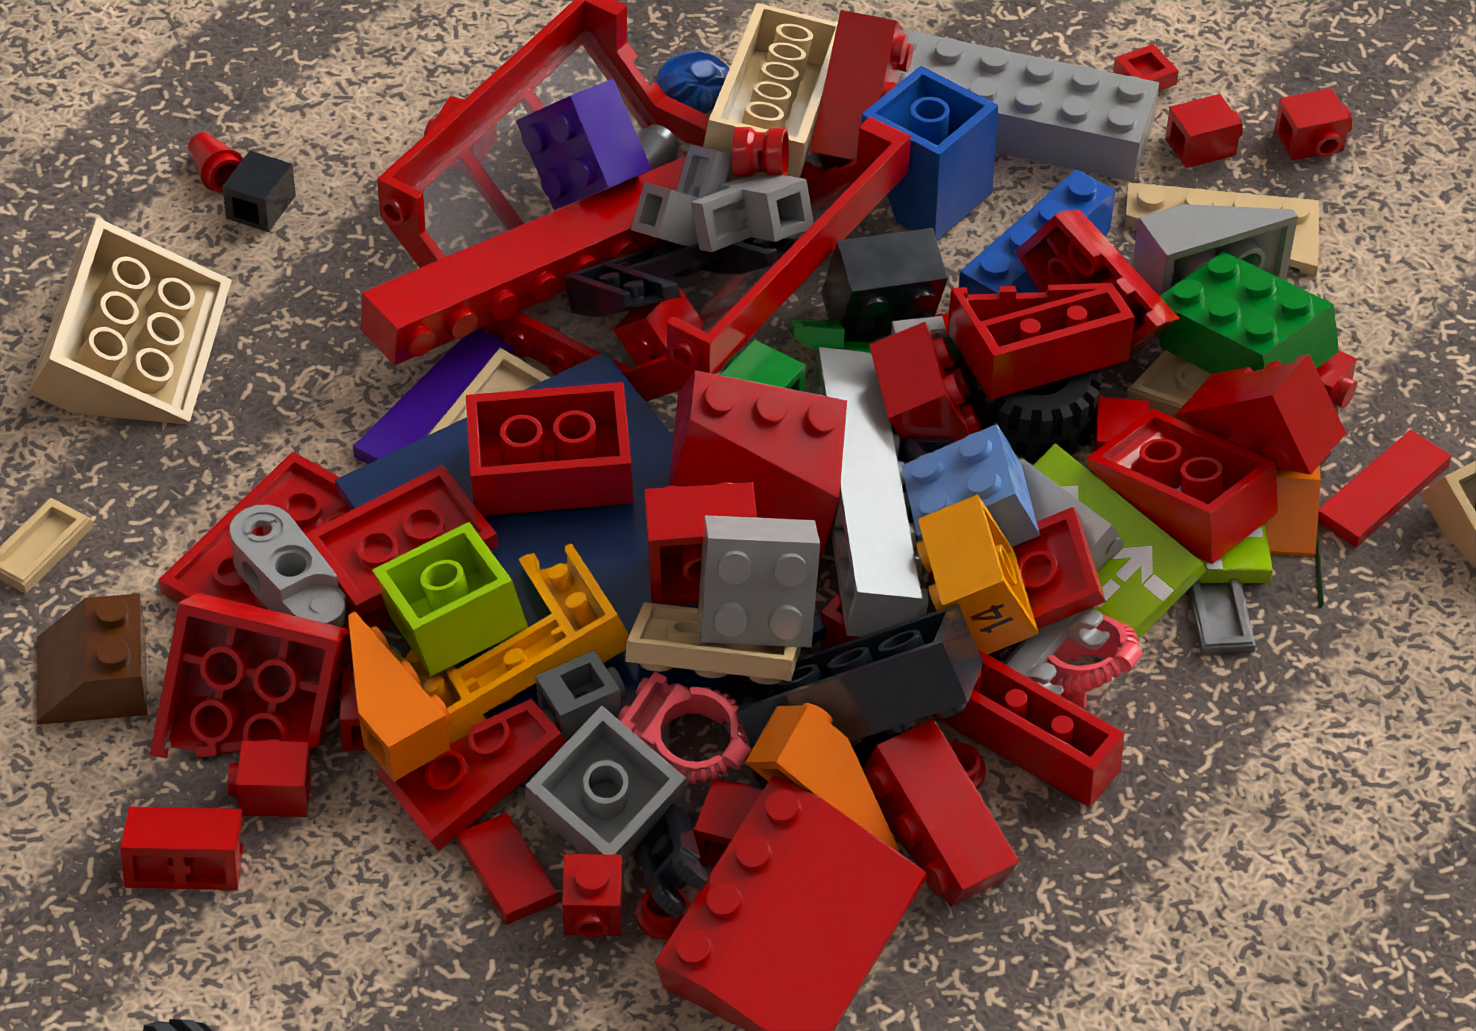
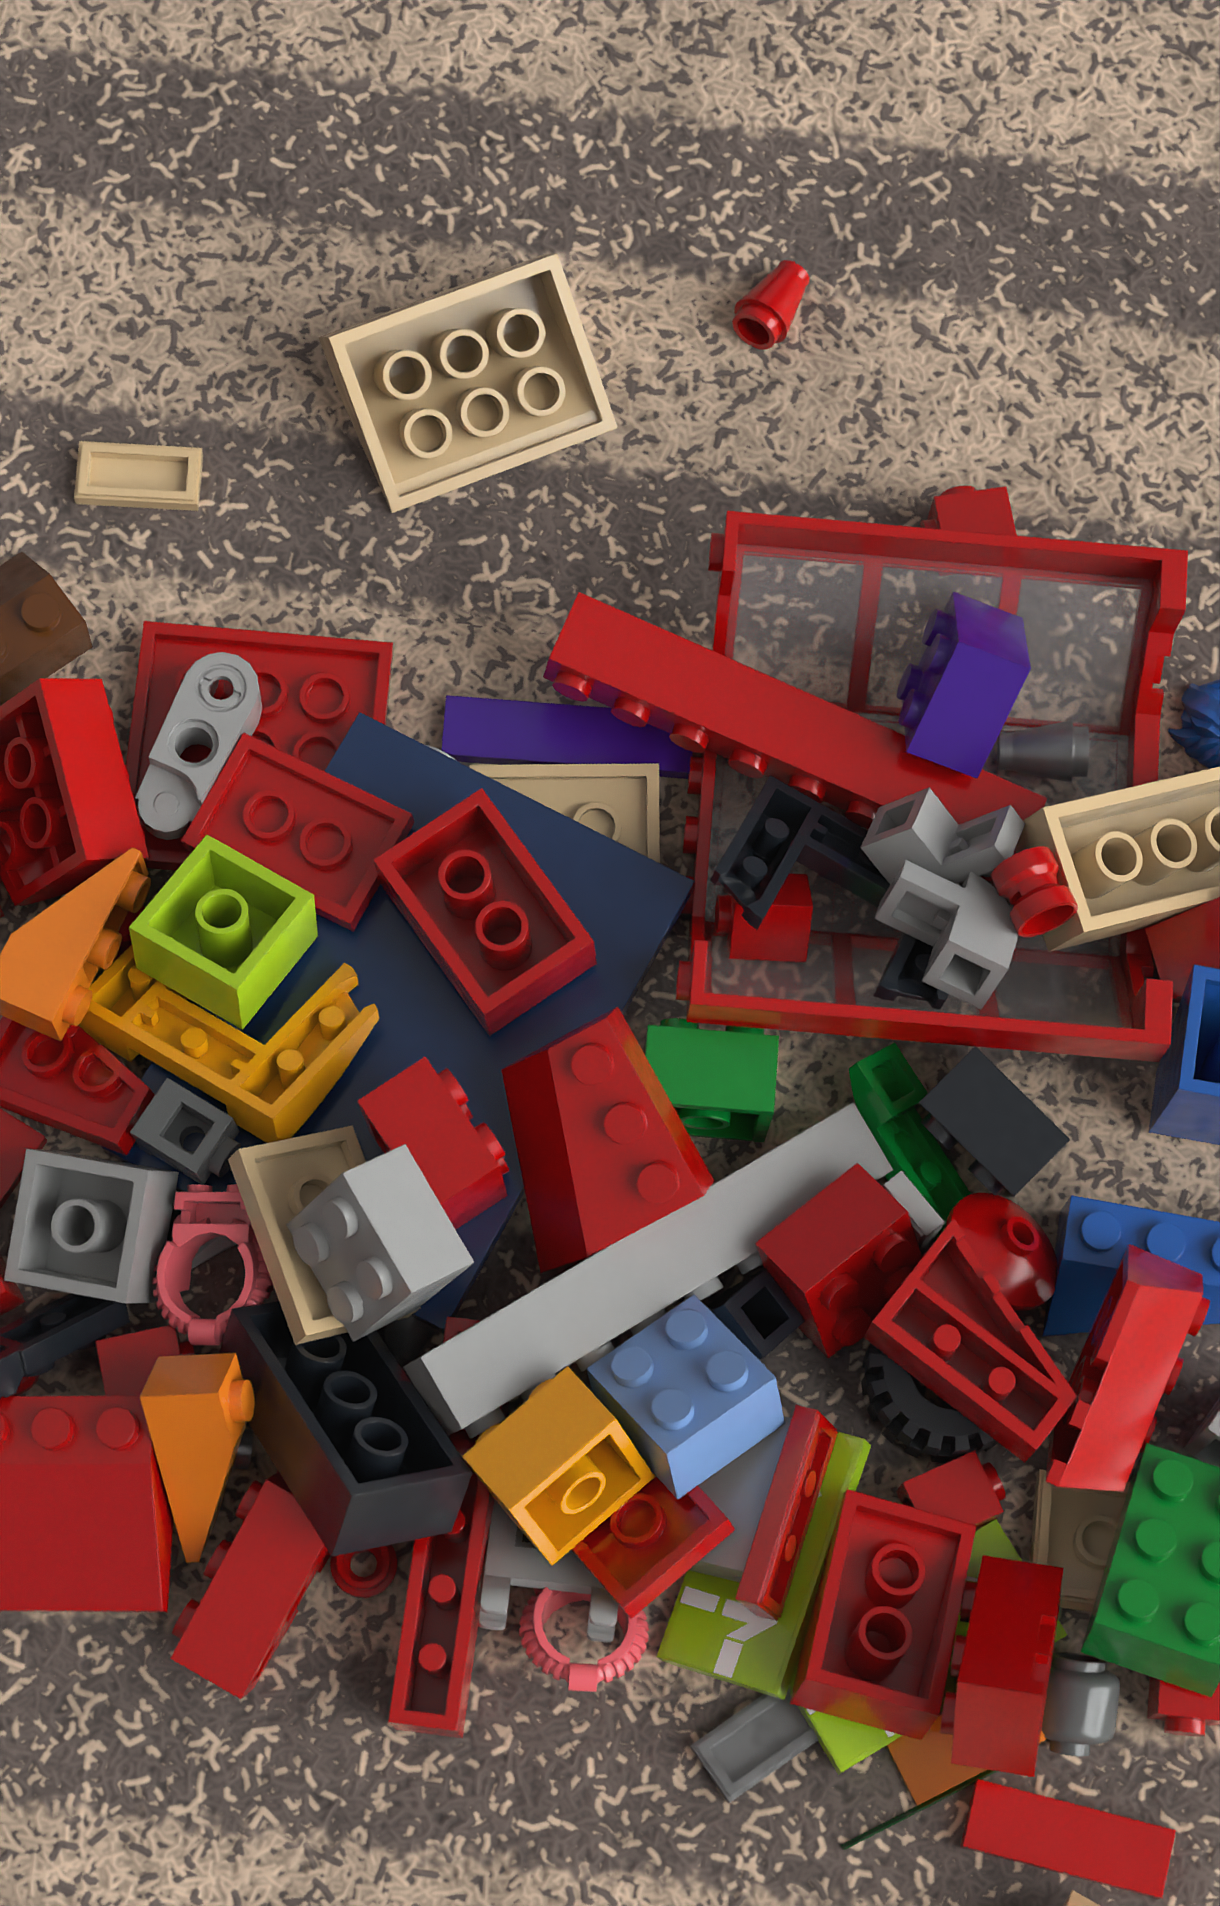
camera: 55 degrees right, 25 degrees up
(259, 191) = (752, 376): black brick -> none
(1127, 525) = (787, 1513): none -> red tile

